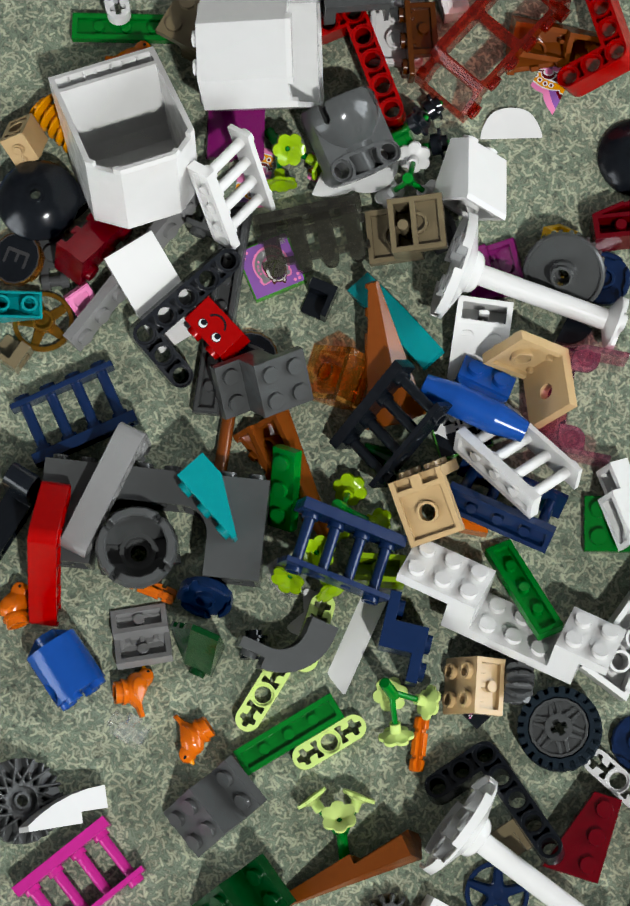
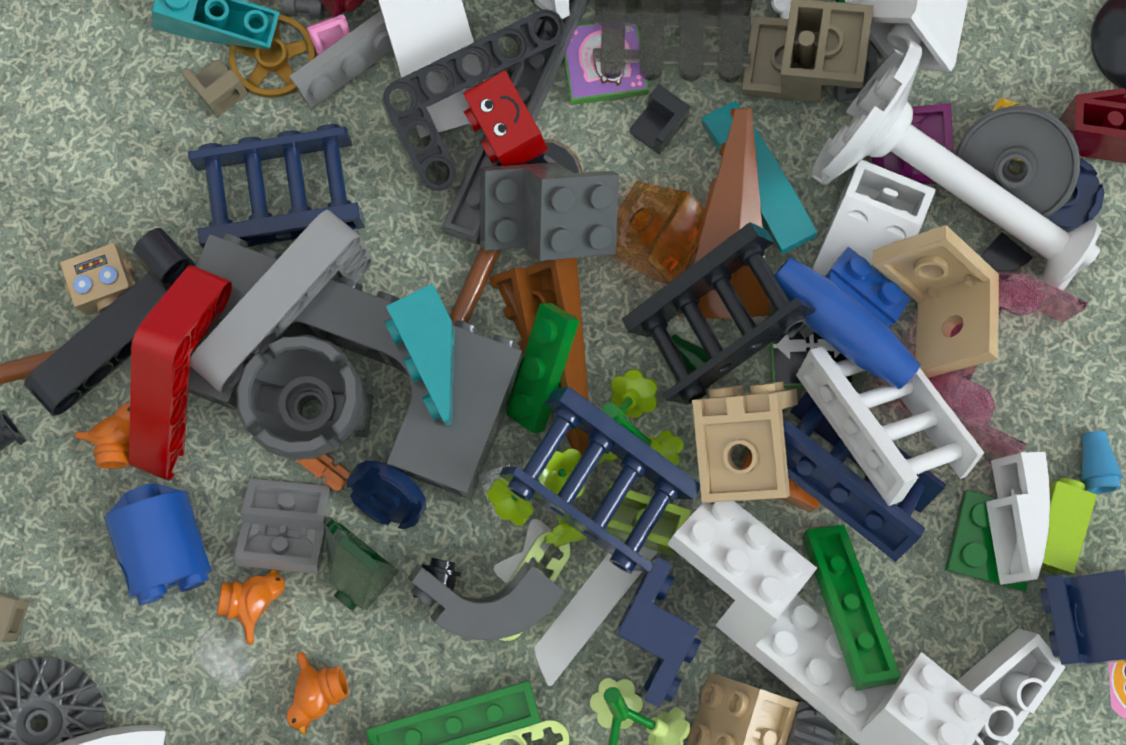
camera: 10 degrees right, 0 degrees up
(251, 696) = (403, 671): yellowish green beam -> none

